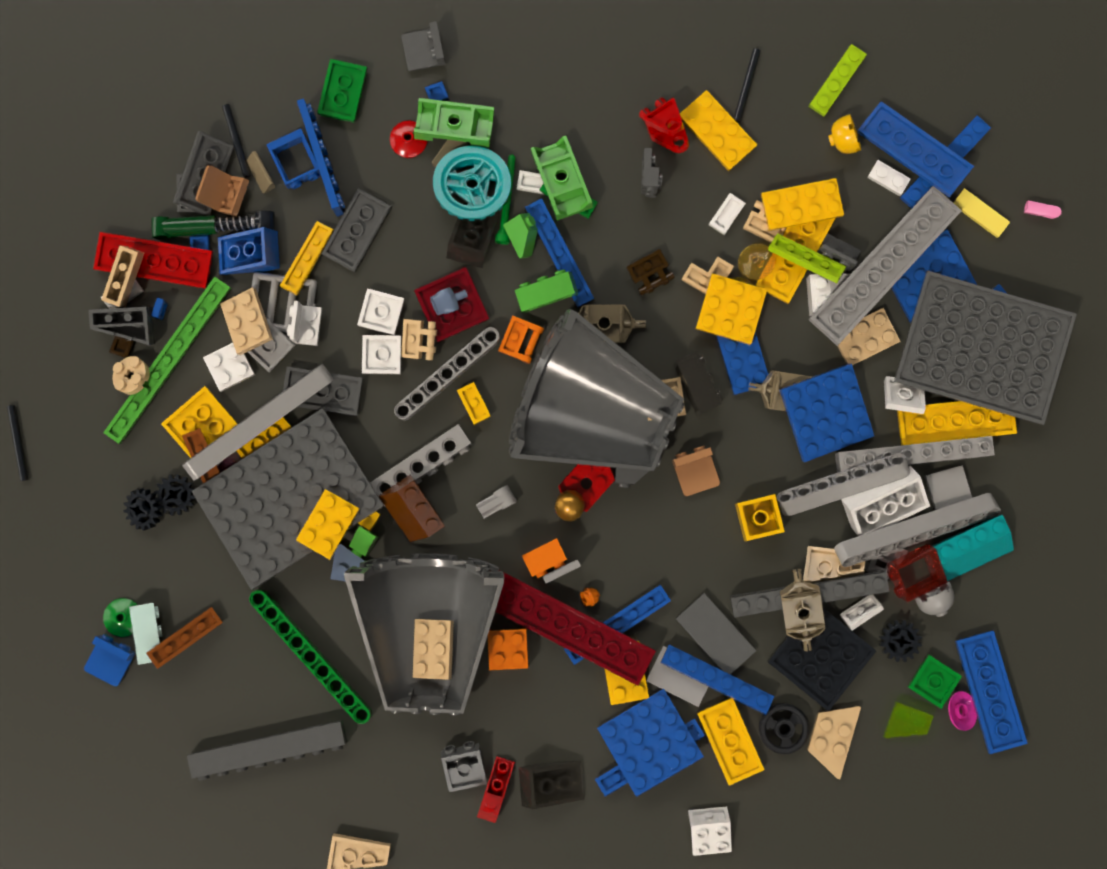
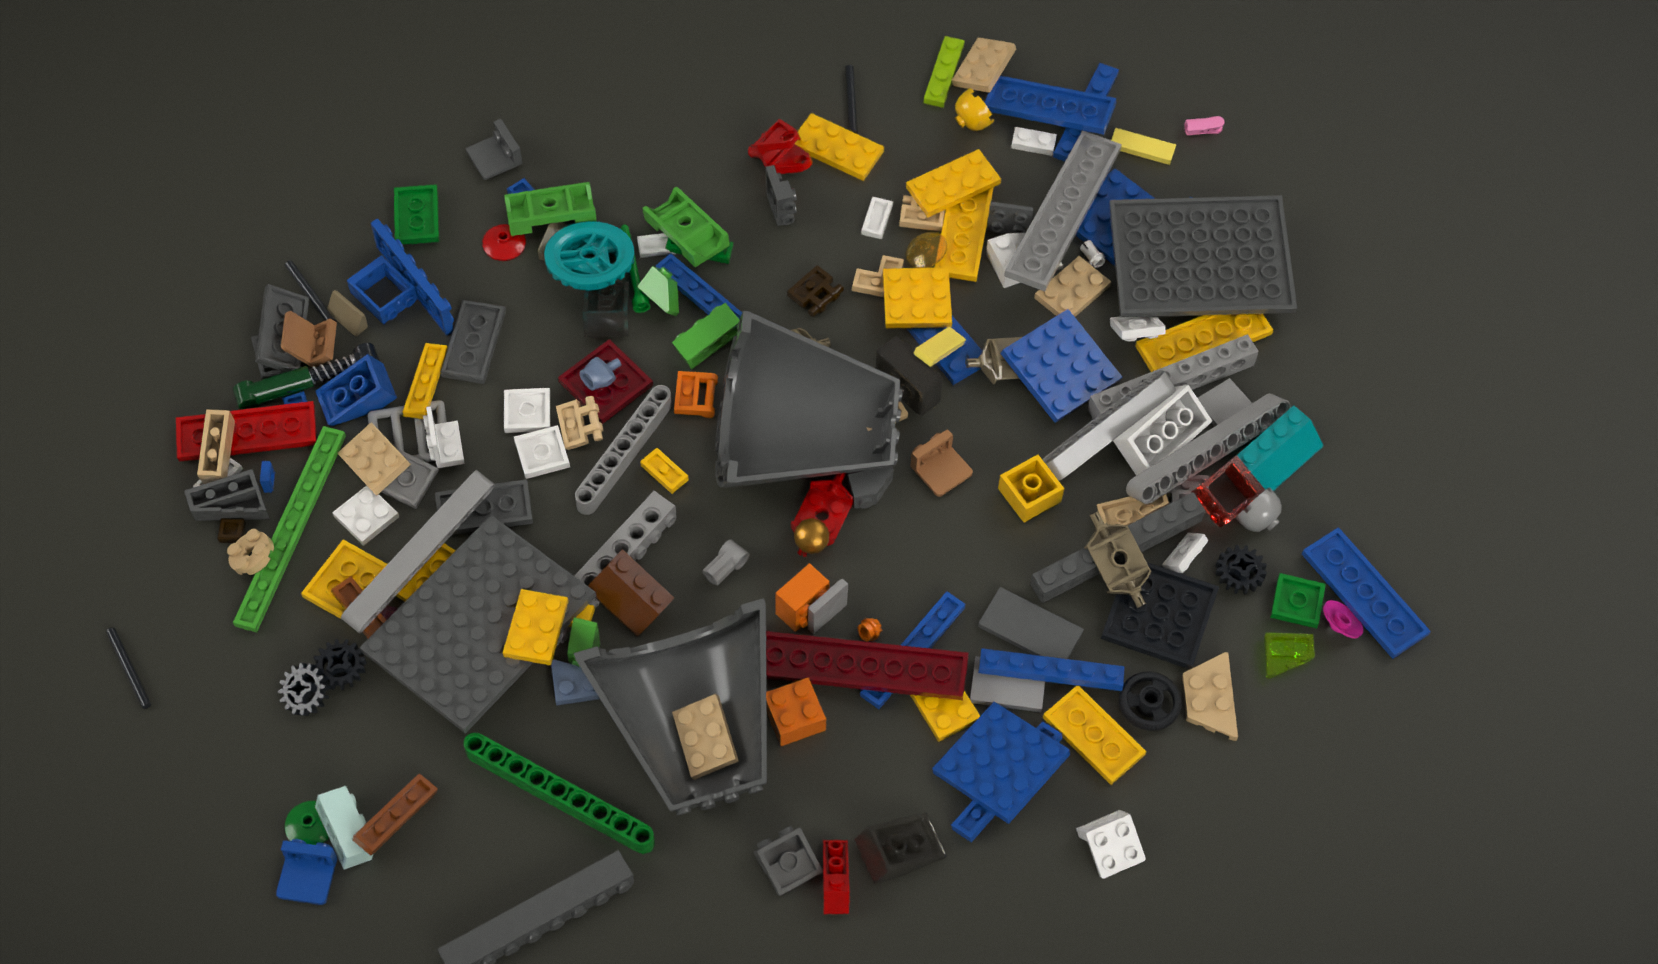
camera: 20 degrees left, 25 degrees down
(731, 369) = (939, 346): none -> light yellow tile
(807, 258) = (978, 224): lime plate -> none
(874, 86) = (983, 64): none -> tan plate
(895, 309) = (1095, 258): none -> white pin

